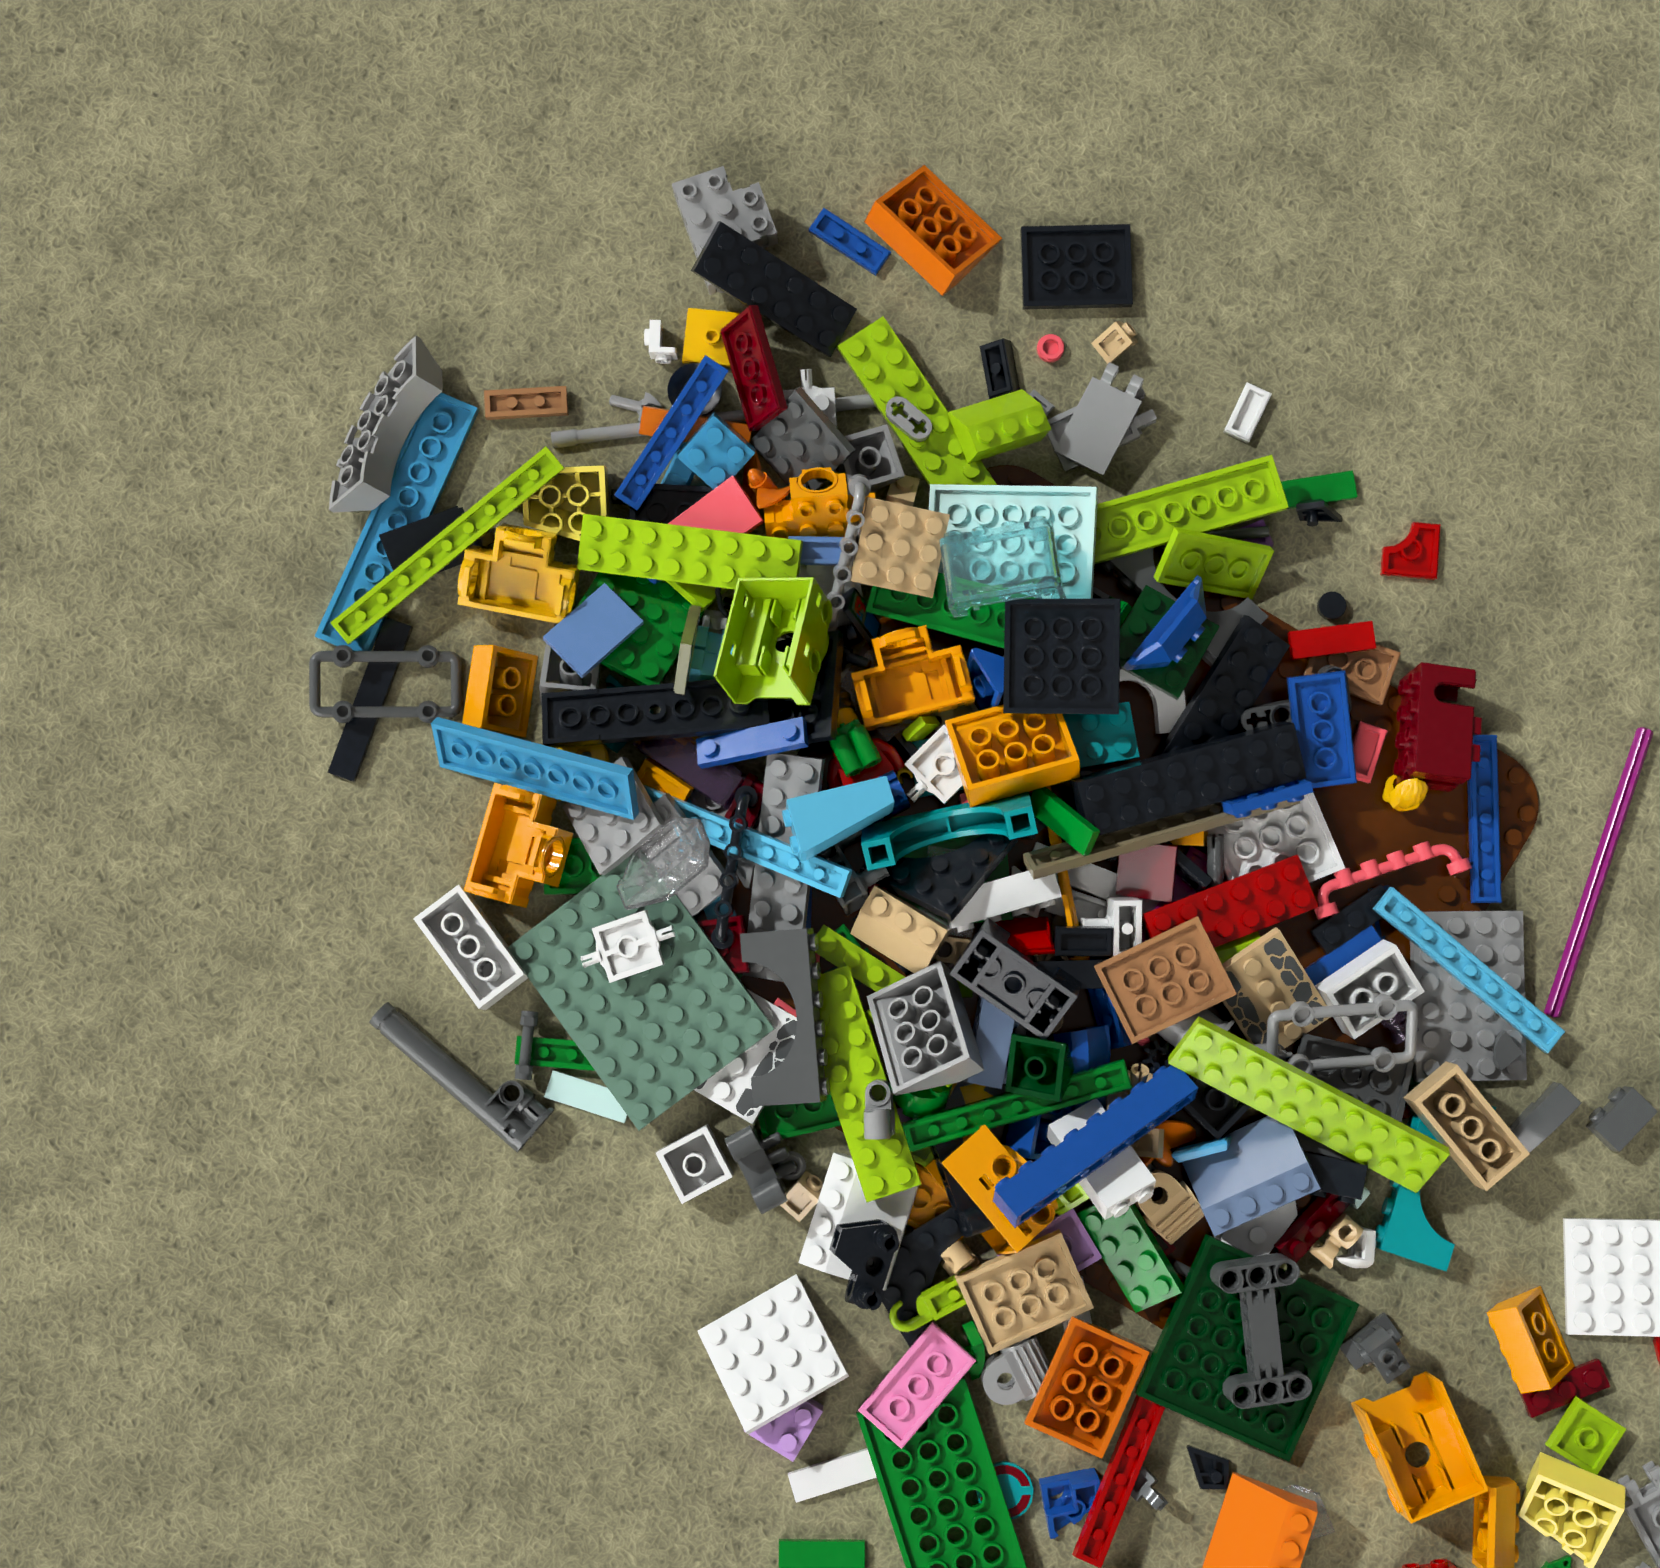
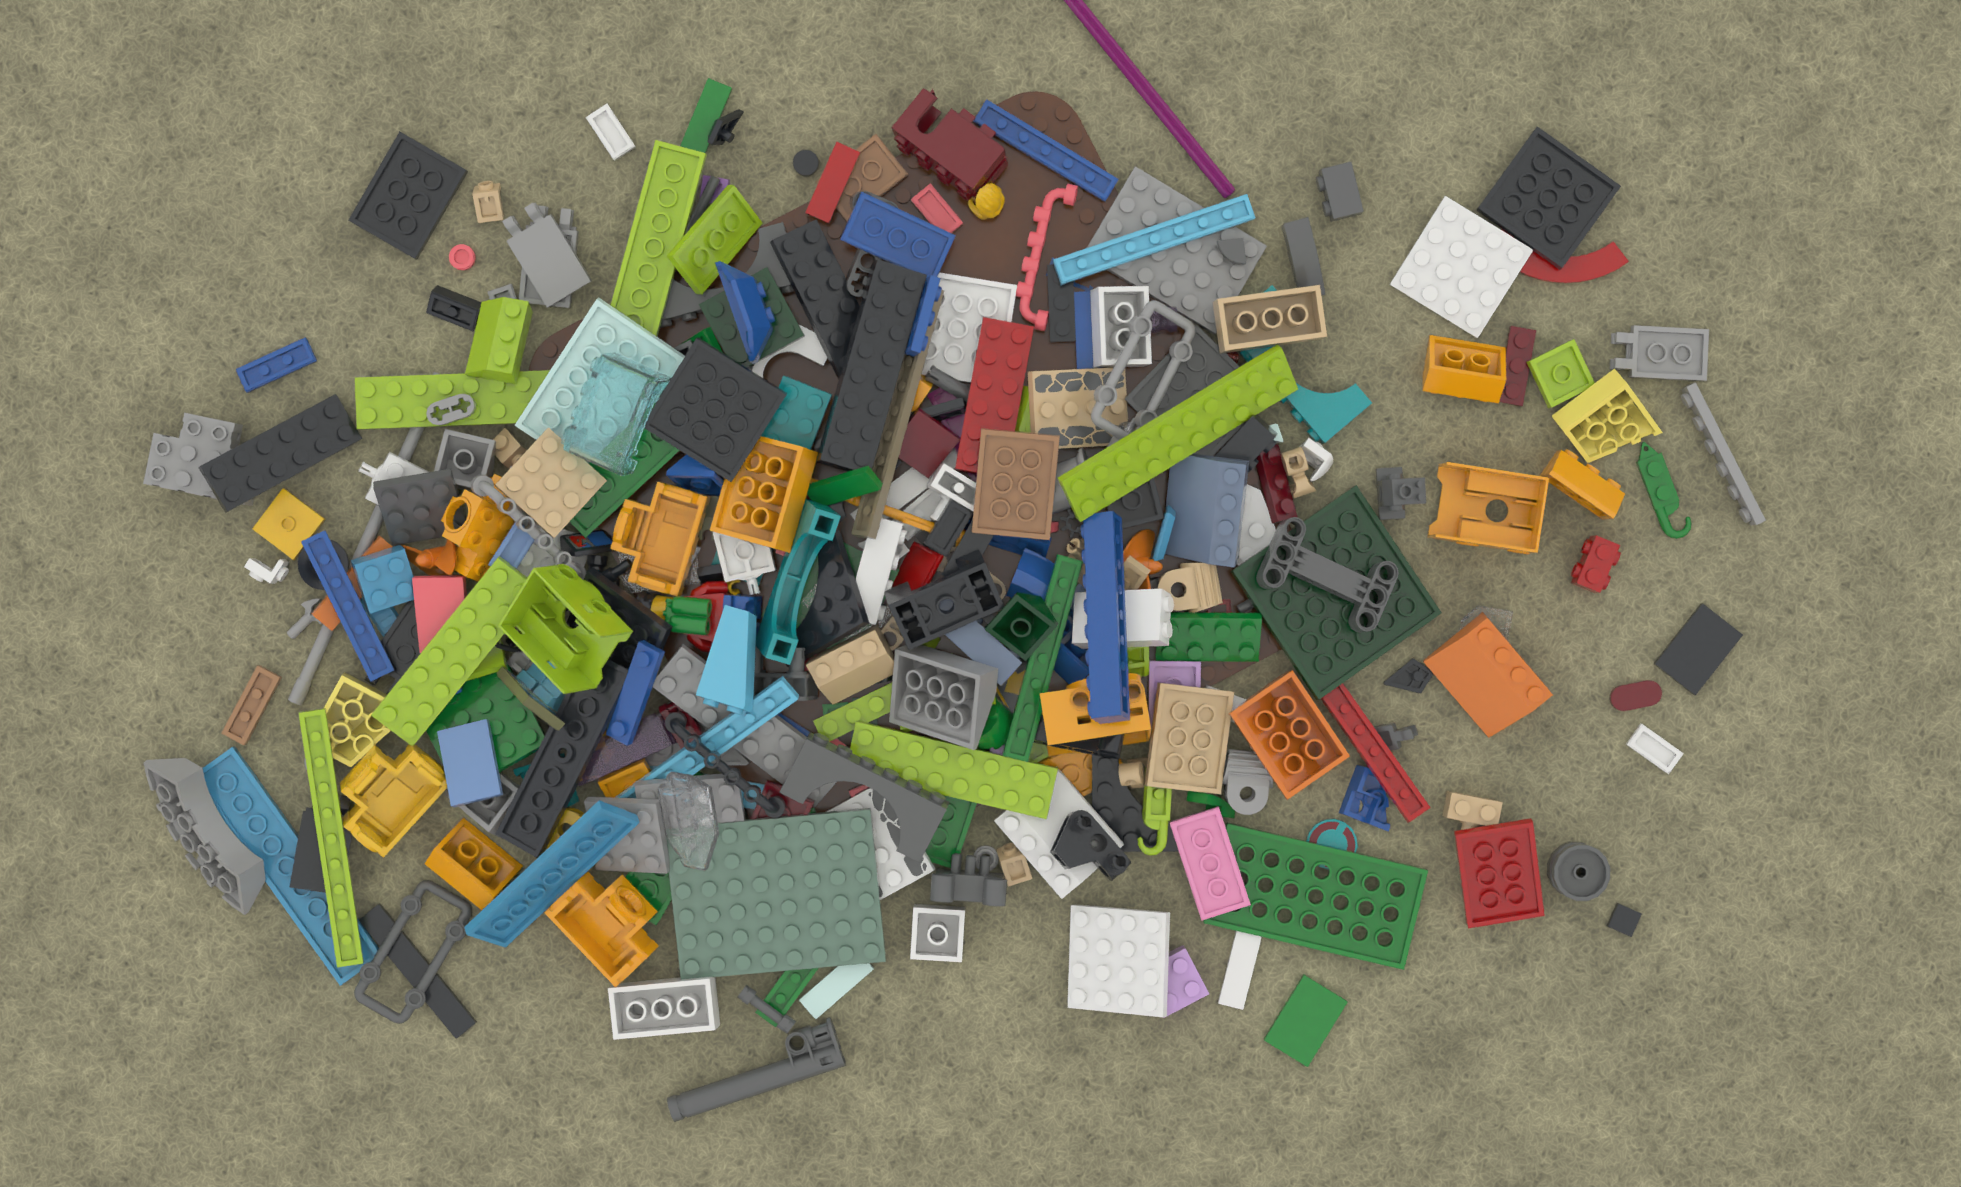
camera: 60 degrees left, 5 degrees up
(628, 946) = (736, 885): white plate -> none
(753, 368) = (335, 508): dark red tile -> none
(879, 1115) = (985, 770): light grey piece -> none
(920, 728) = (704, 551): lime tile -> none
(932, 229) = (306, 293): orange slope -> none
(1415, 555) = (806, 71): red tile -> none

